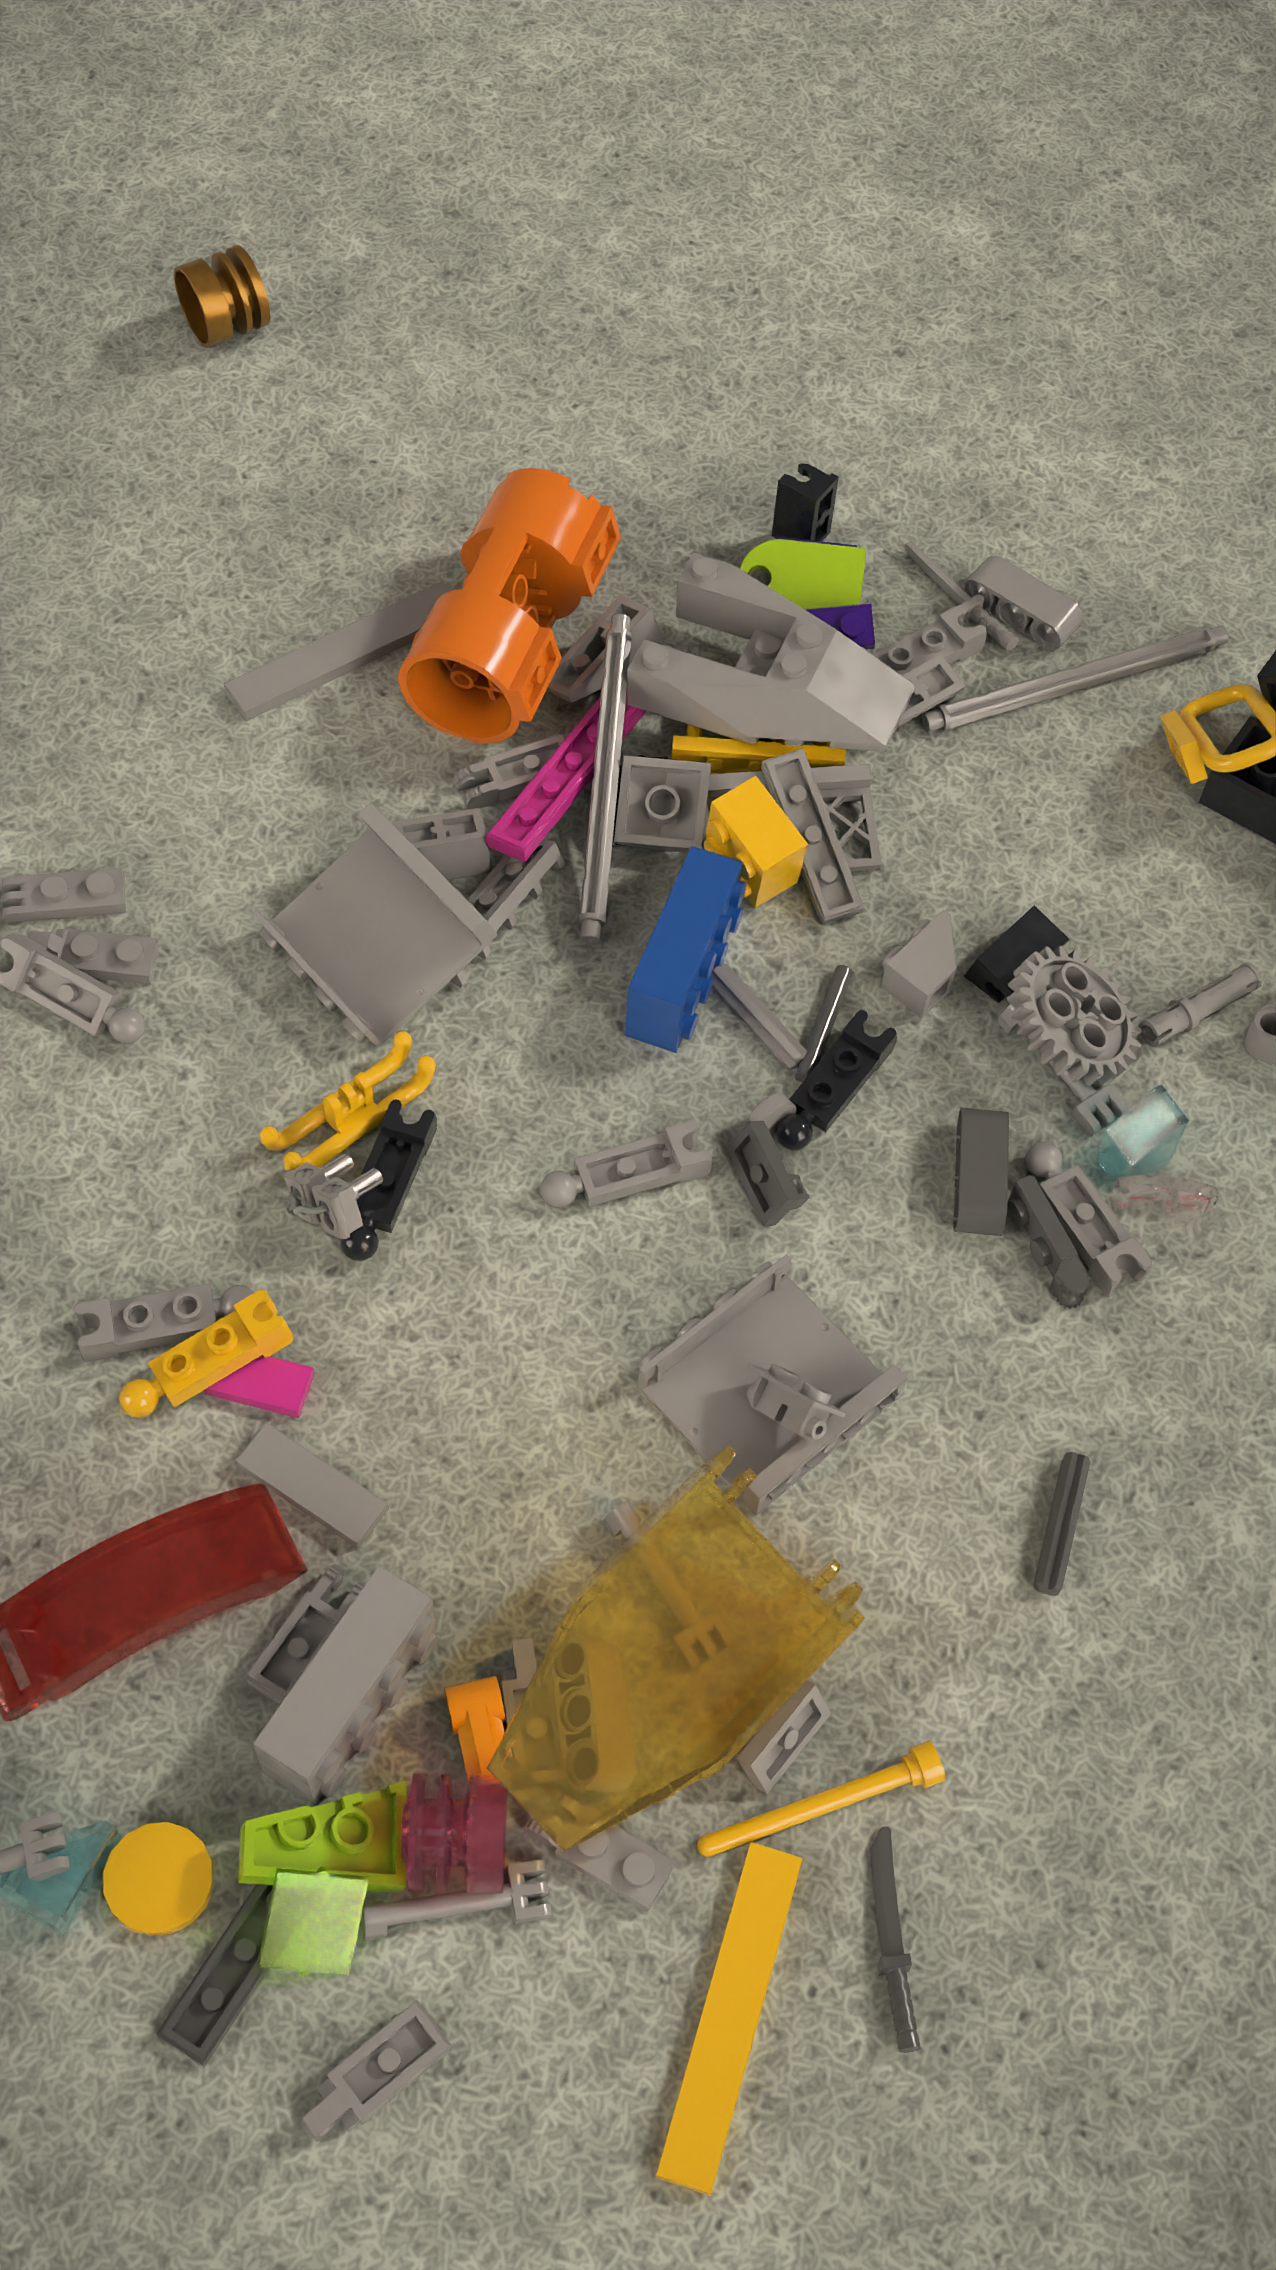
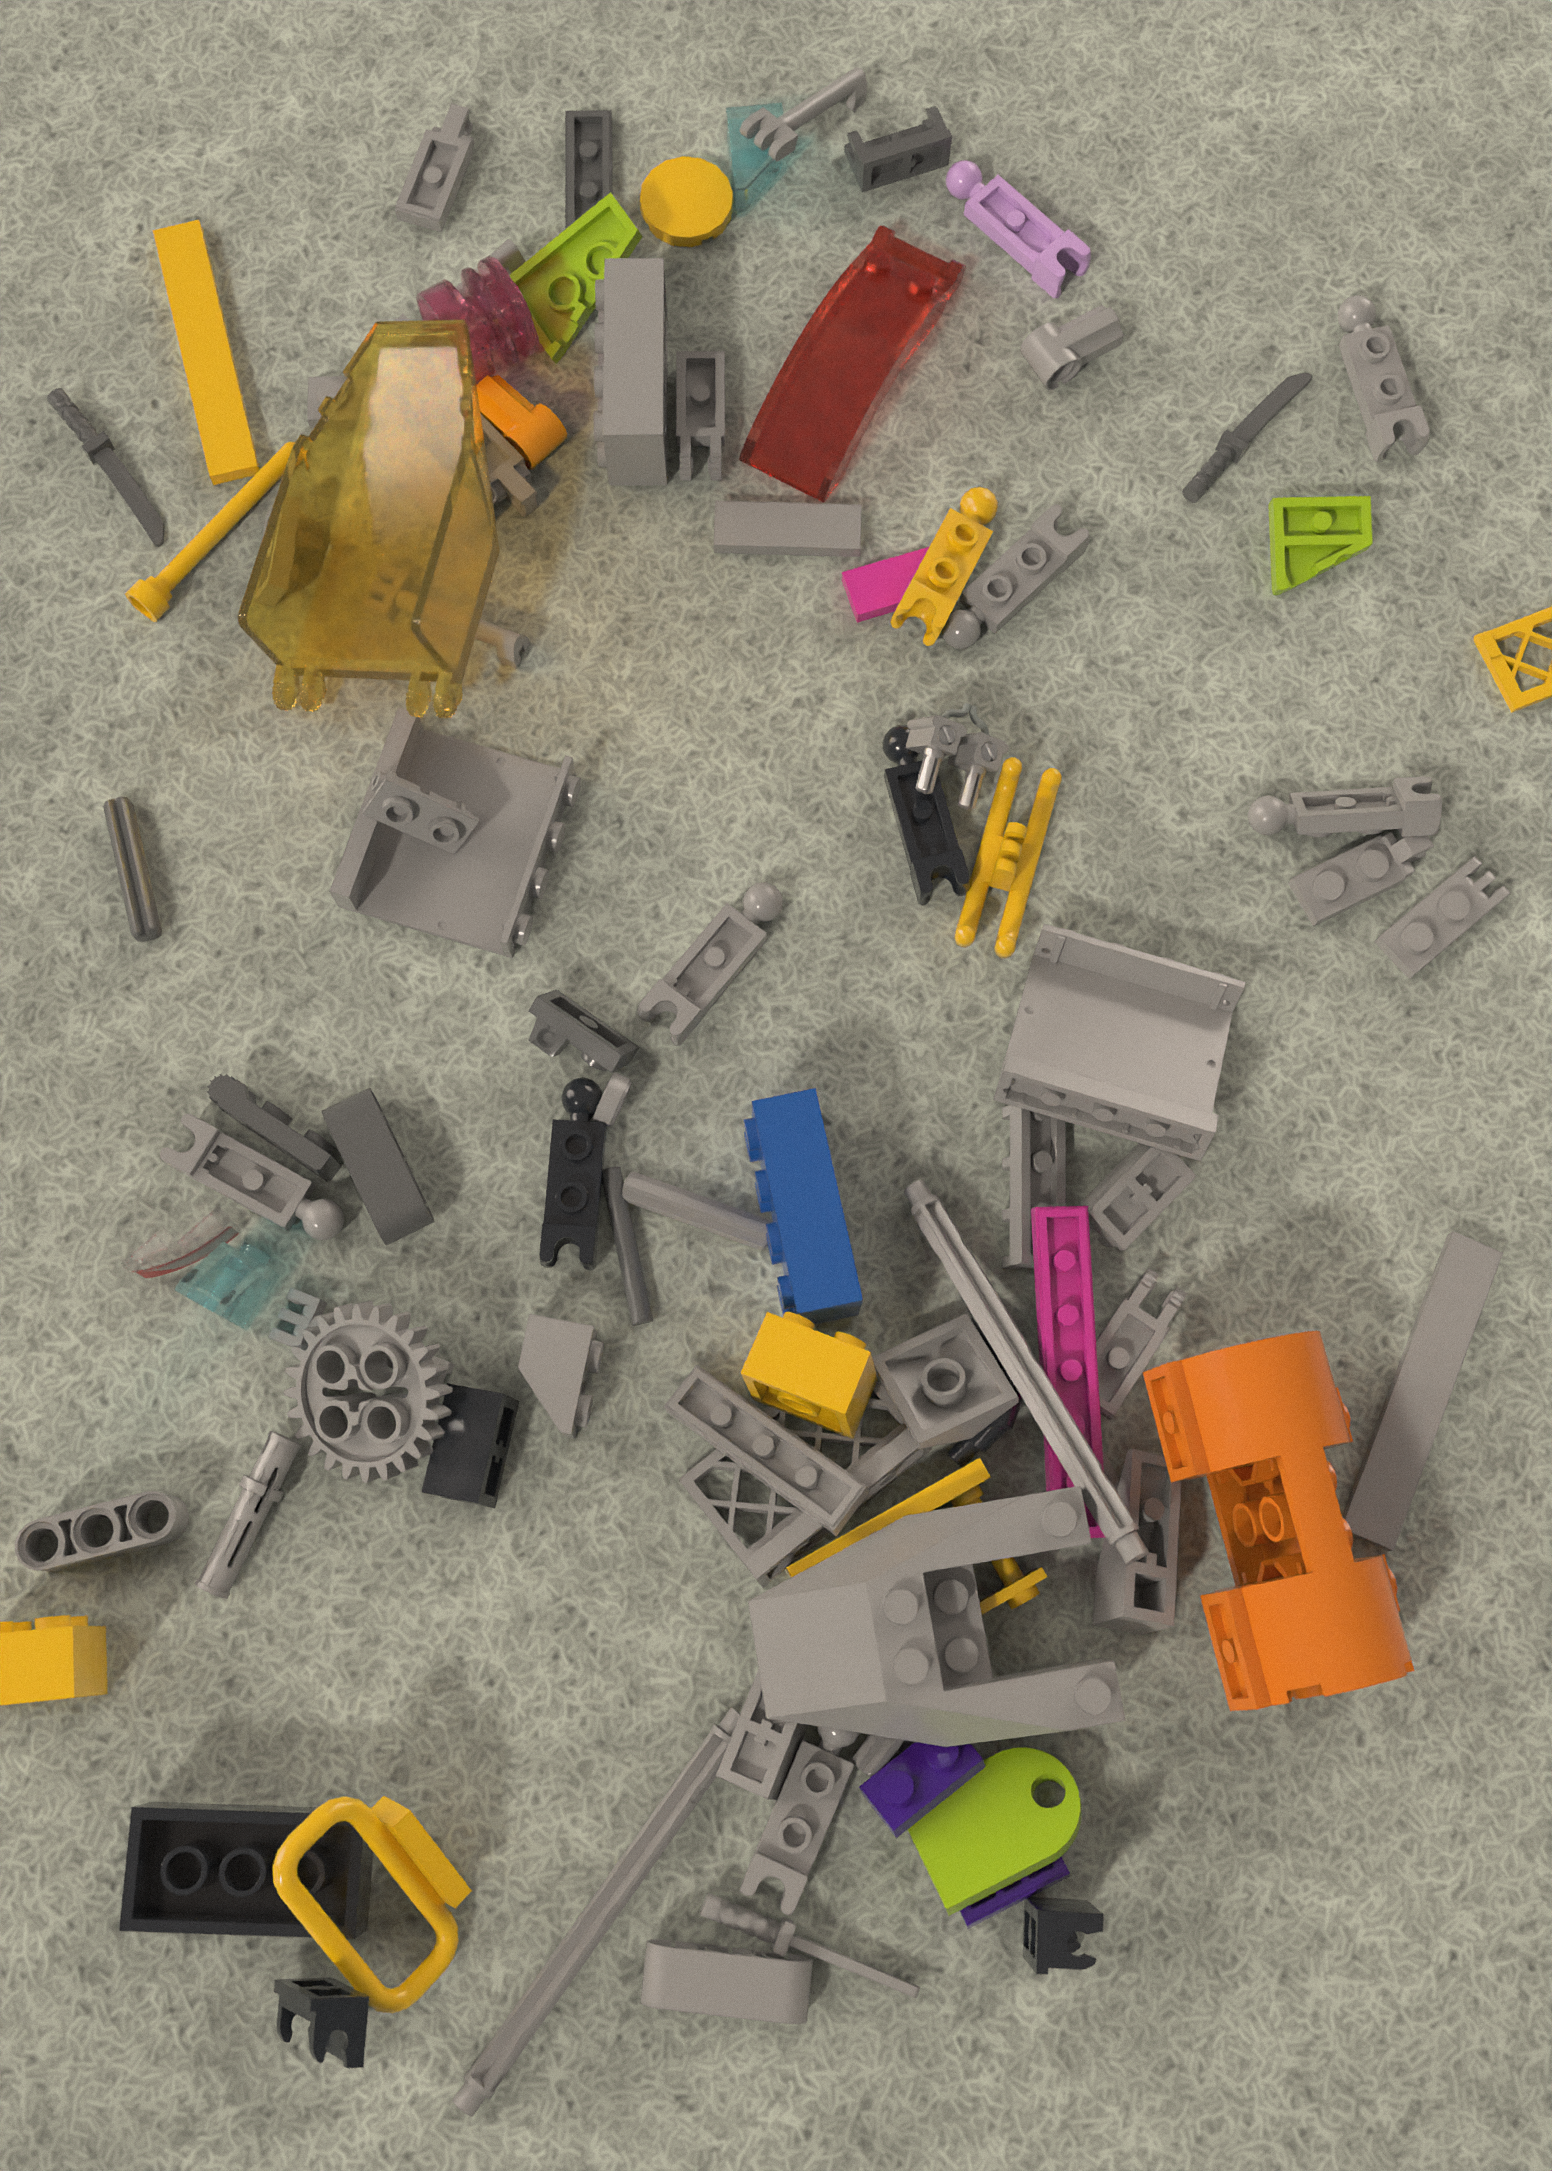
camera: 150 degrees right, 15 degrees up
(312, 1921) = (547, 218): clear neon green piece -> none

